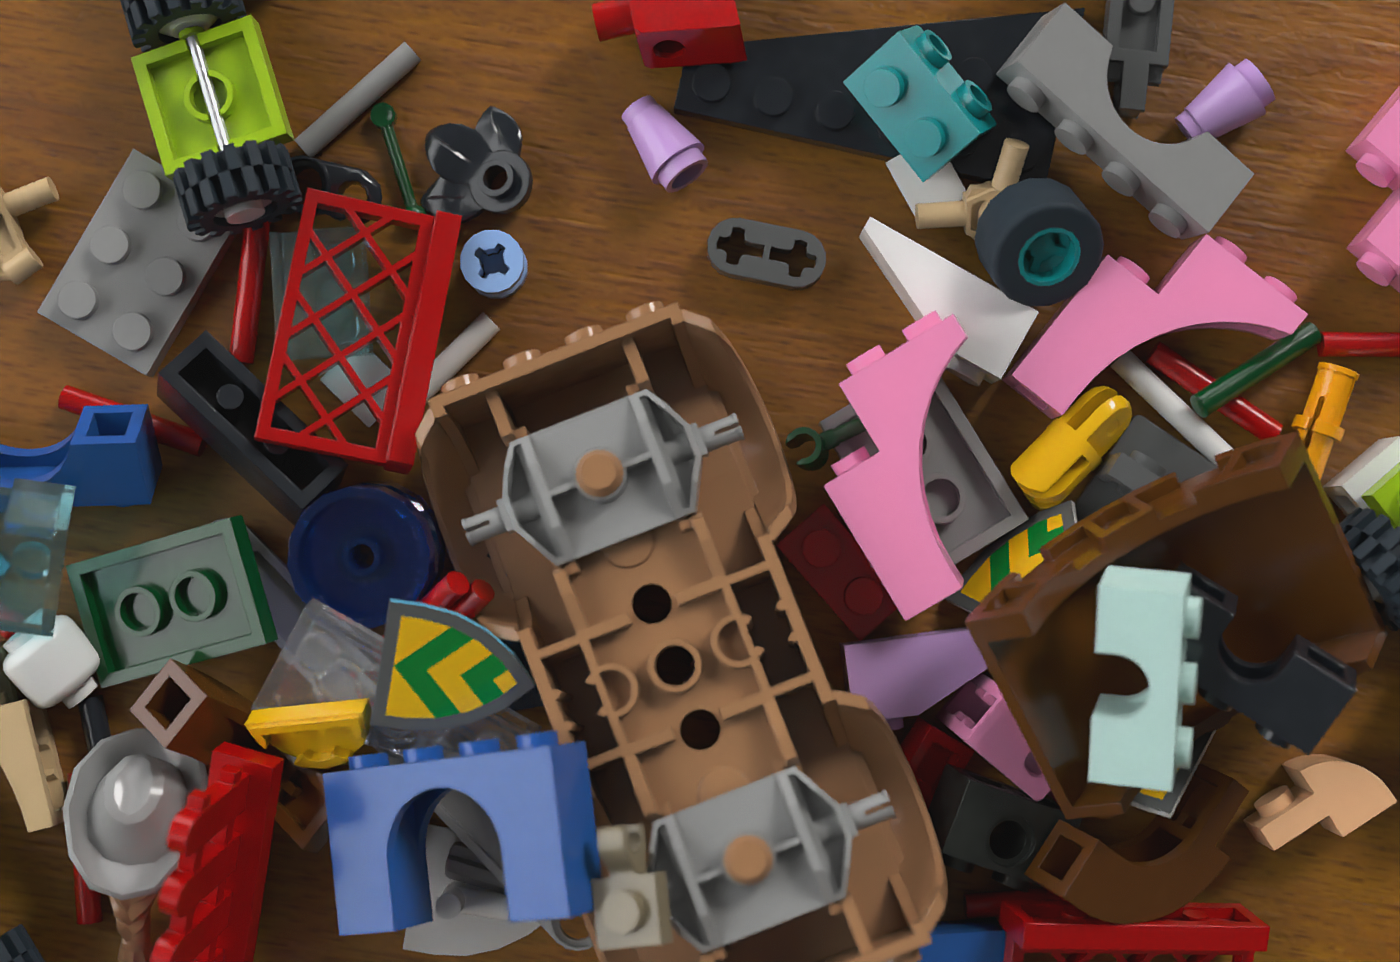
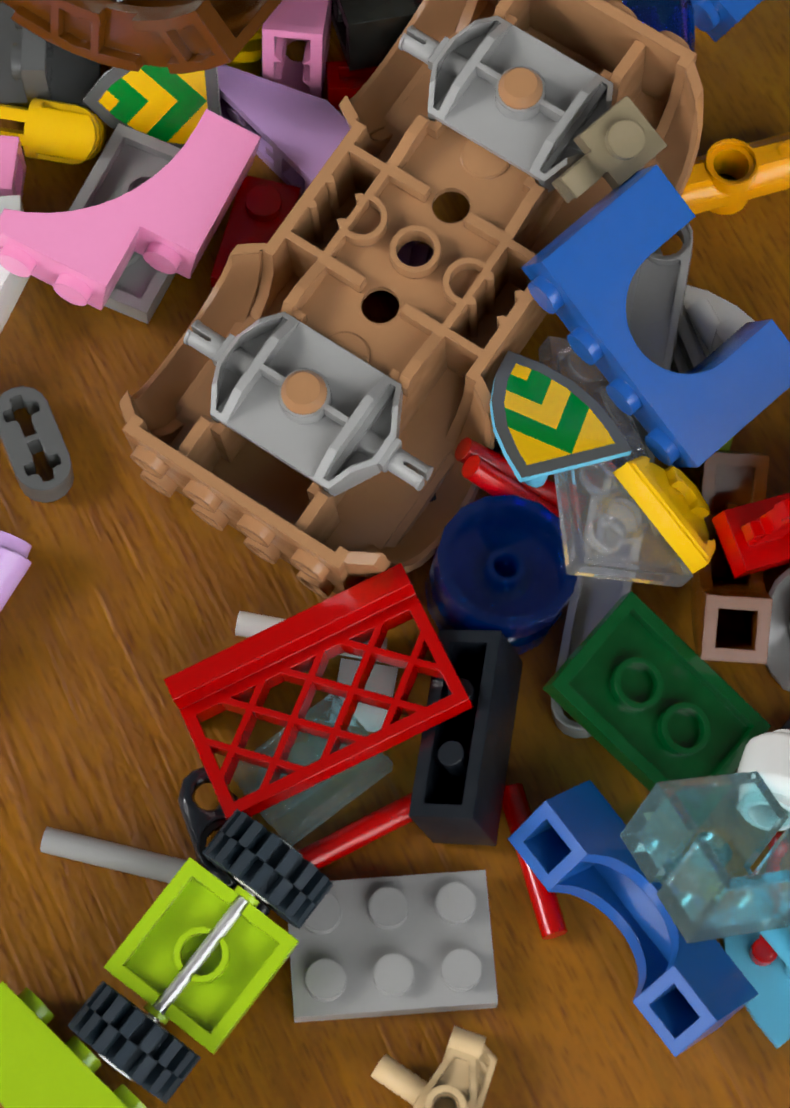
camera: 130 degrees left, 20 degrees down
(385, 118) = (120, 827): dark green hinge -> none
(470, 162) = (113, 725): black plate -> none
(503, 271) = (185, 622): light blue wheel -> none
(824, 442) = (156, 294): dark green hand -> none

